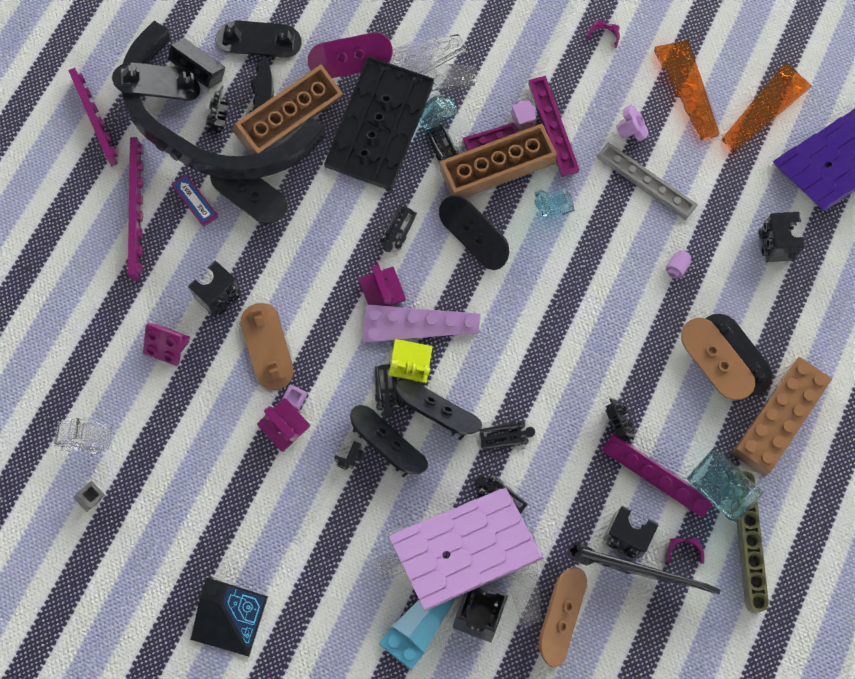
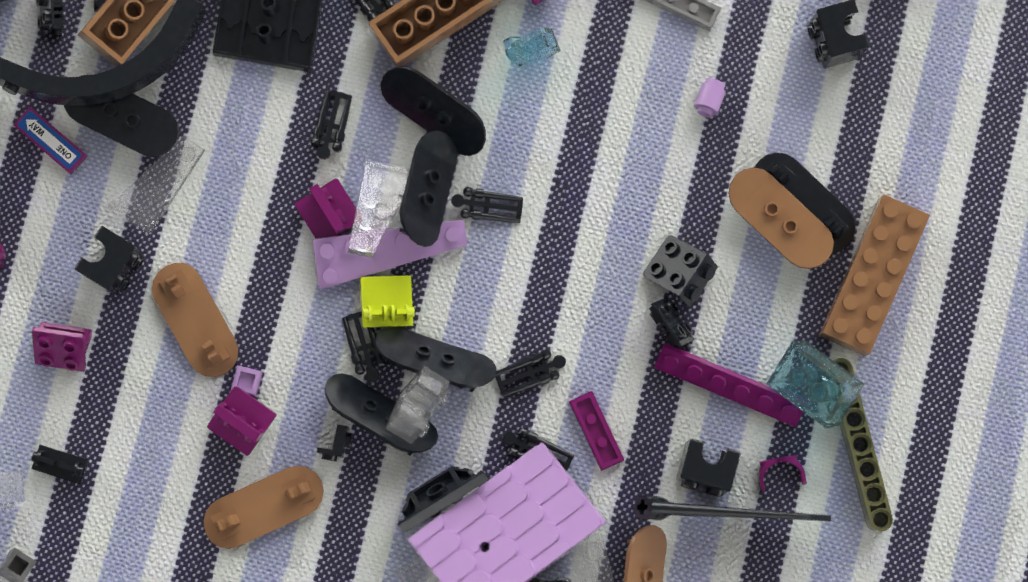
camera: 15 degrees left, 10 degrees up
(141, 428) = (59, 464): none -> black hinge
(263, 246) = (154, 191): none -> clear wing
(284, 492) = (263, 507): none -> medium nougat piece
(418, 290) = (377, 204): none -> clear wing
(418, 438) = (417, 405): none -> clear brick
(419, 508) = (437, 494): none -> black wing
(458, 284) = (428, 188): none -> black piece
(478, 300) = (458, 200): none -> black piece
(548, 489) = (596, 431): none -> magenta tile
(635, 382) = (681, 269): none -> black bracket

